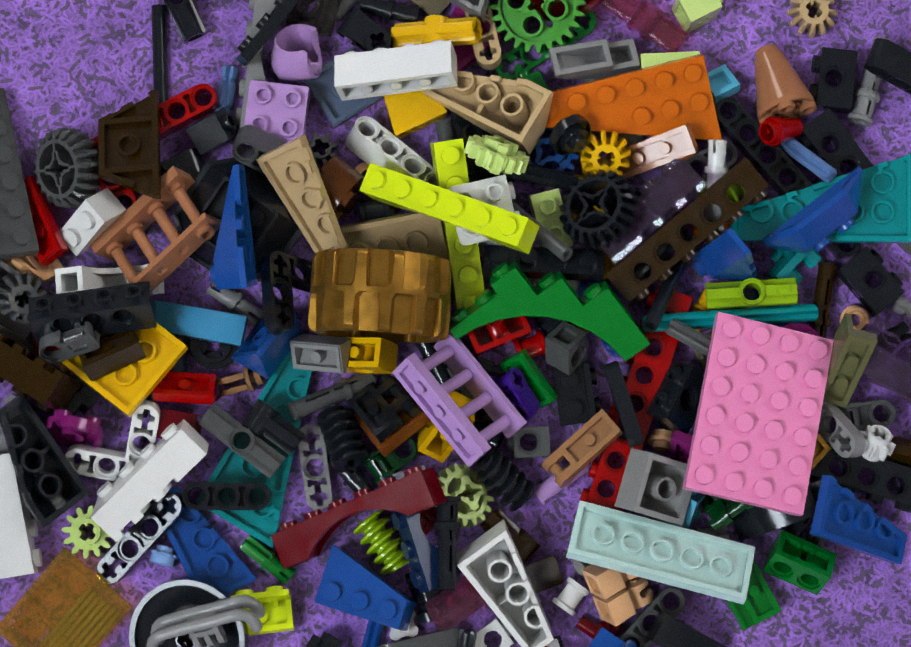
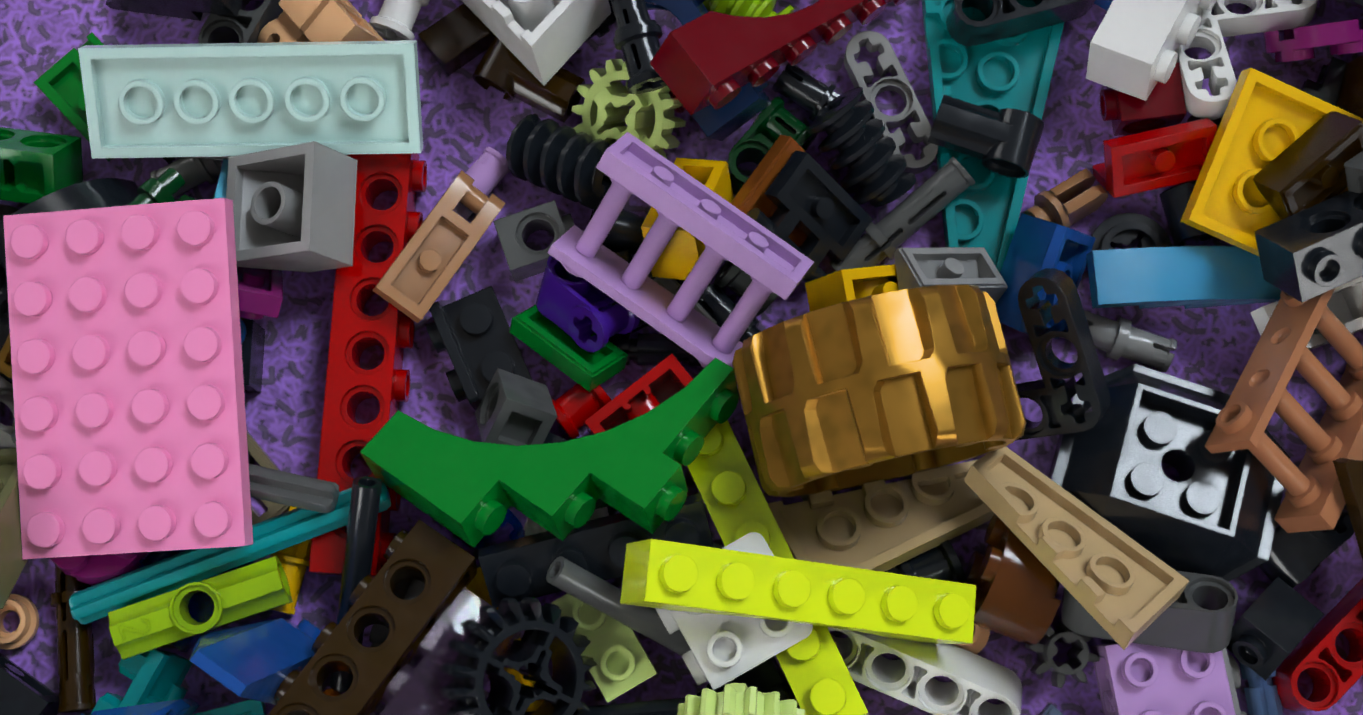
camera: 170 degrees right, 5 degrees down
(226, 428) = (1064, 107): dark grey piece -> none
(234, 250) = (1170, 403): blue wedge -> none
(623, 404) = (385, 337): black beam -> none
(660, 440) = (307, 309): light nougat plate -> none
(677, 398) = (289, 382): black brick -> none

